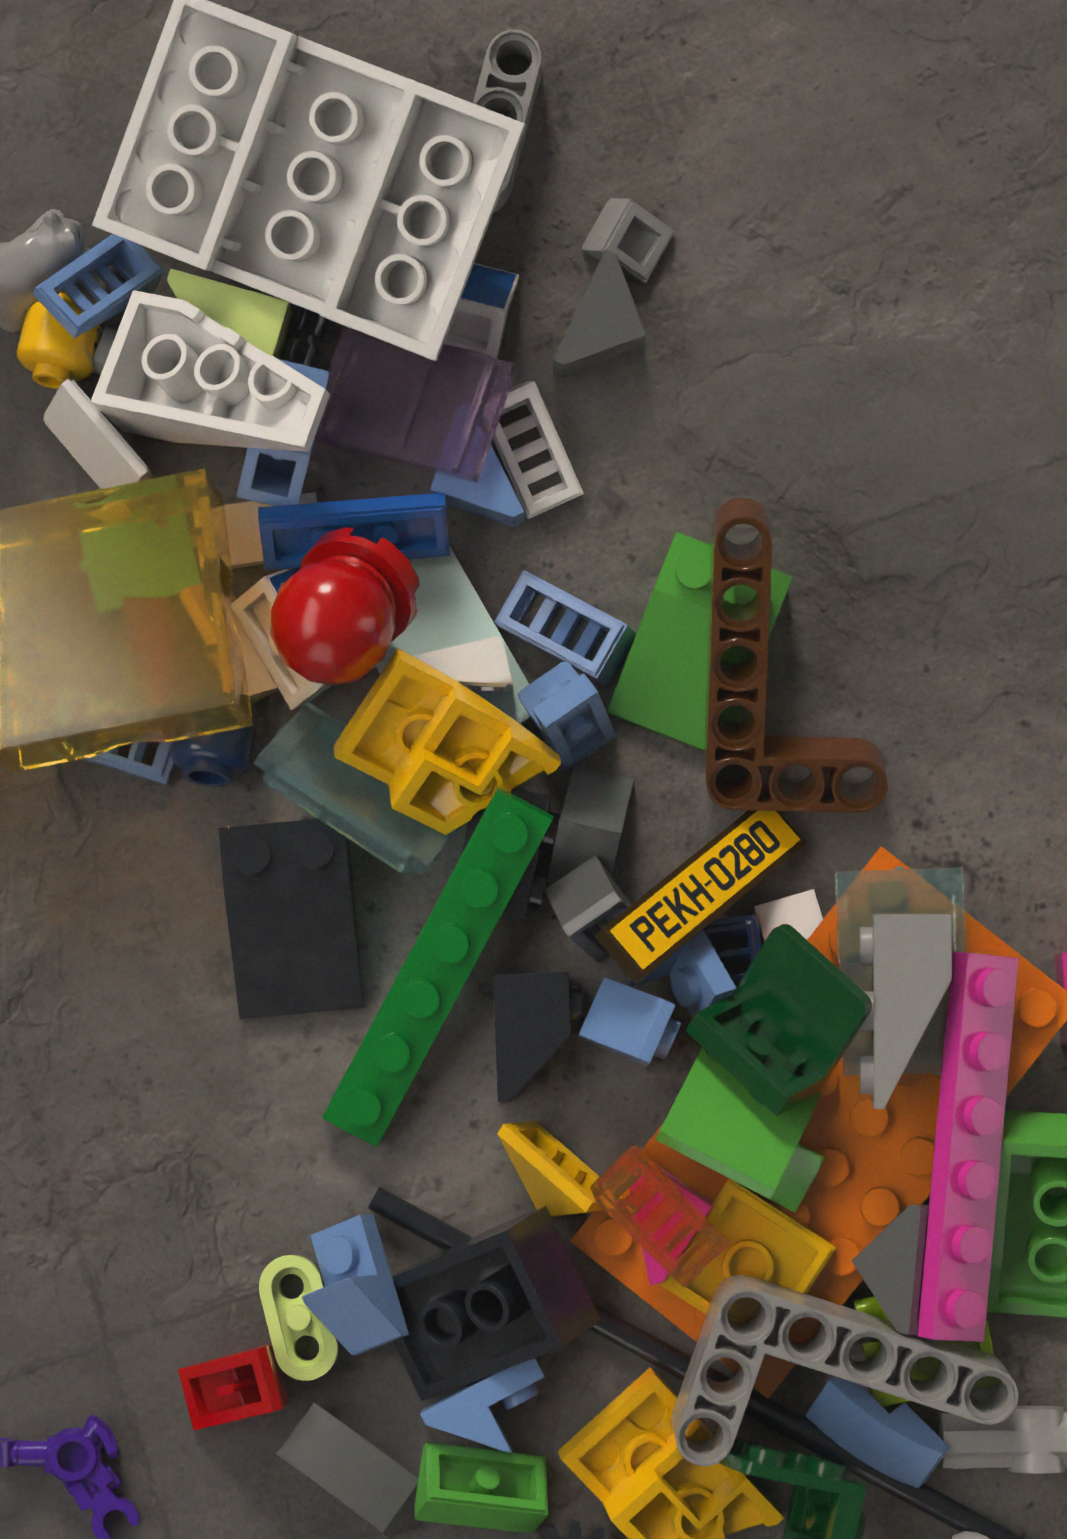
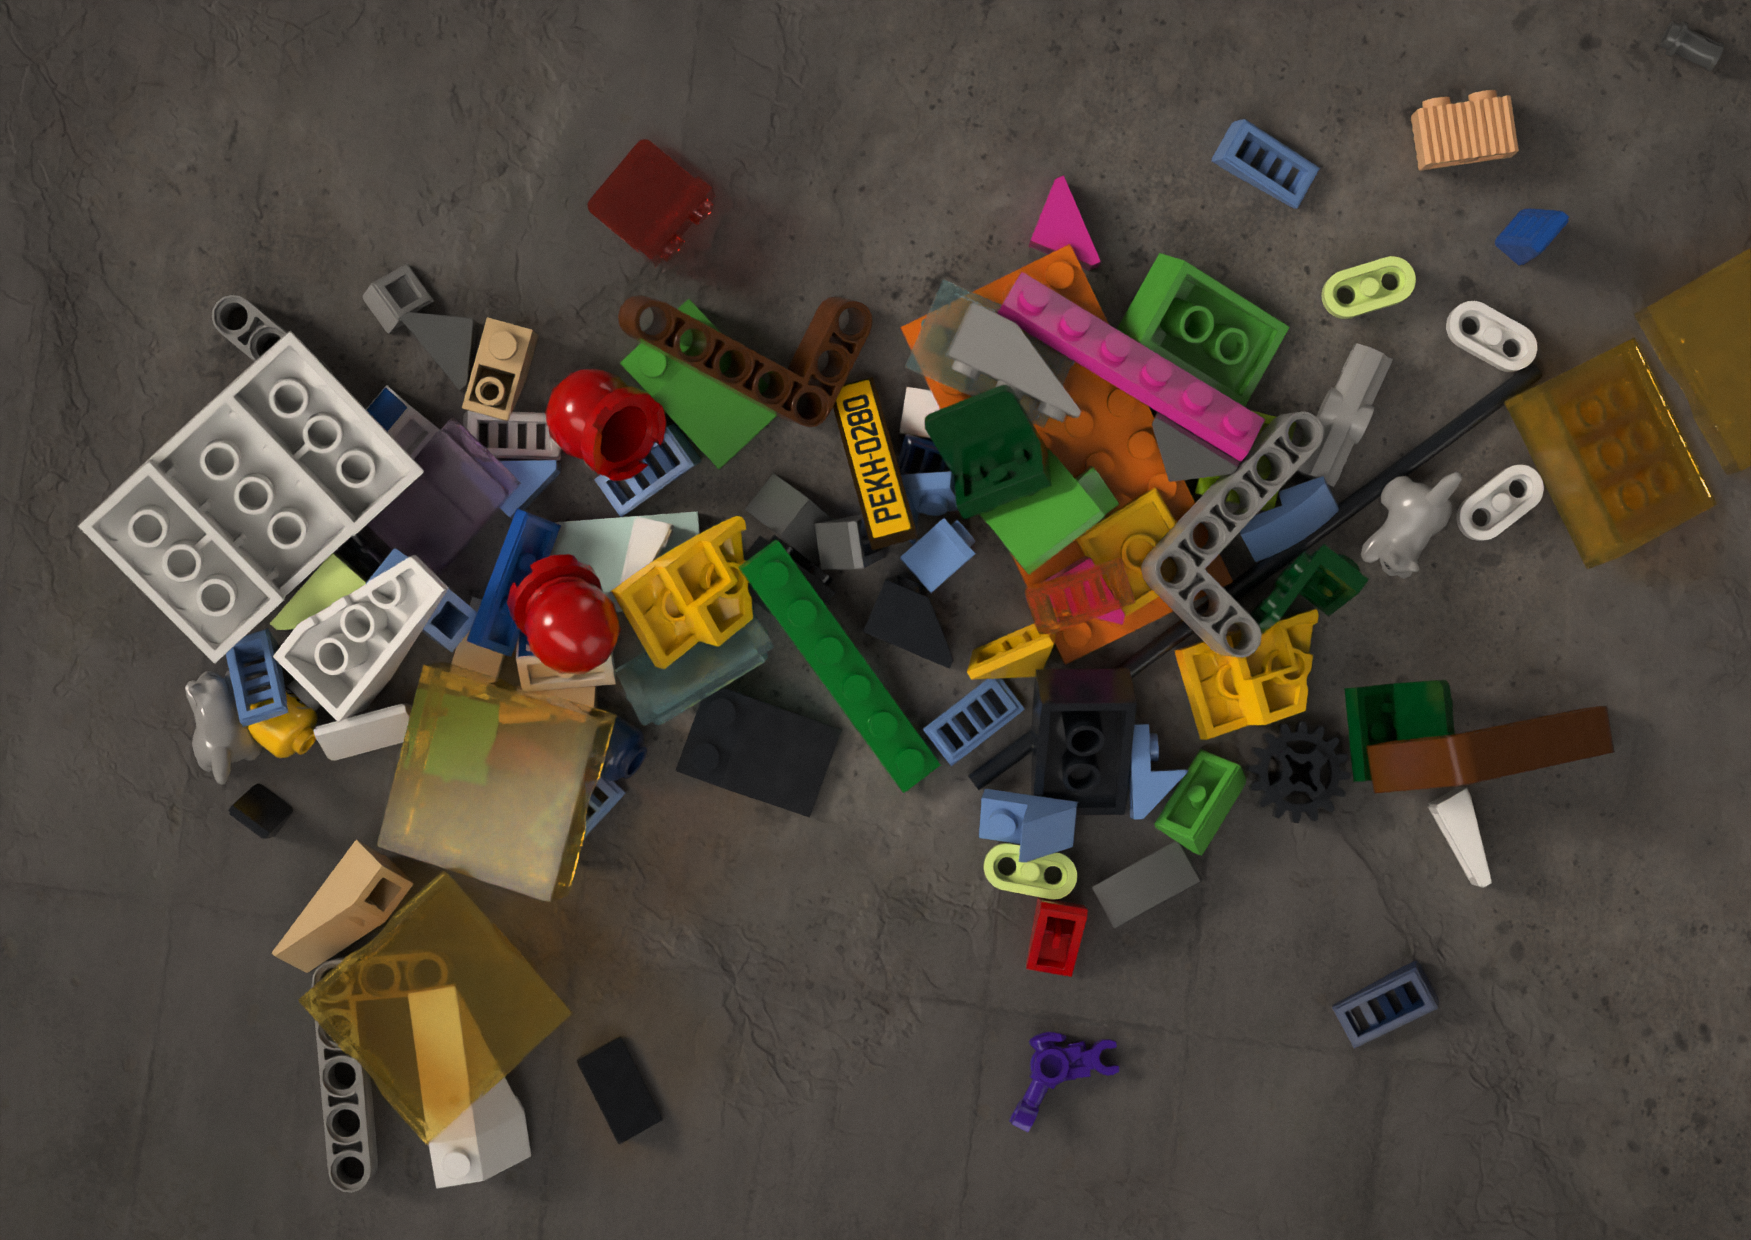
camera: 65 degrees left, 5 degrees up
(405, 1134) = (943, 744): none -> medium blue slope
(568, 713) = (708, 496): medium blue slope -> none
(596, 548) = (605, 422): none -> red tile
(601, 396) = (500, 369): none -> tan slope
(886, 481) = (651, 202): none -> clear red bracket

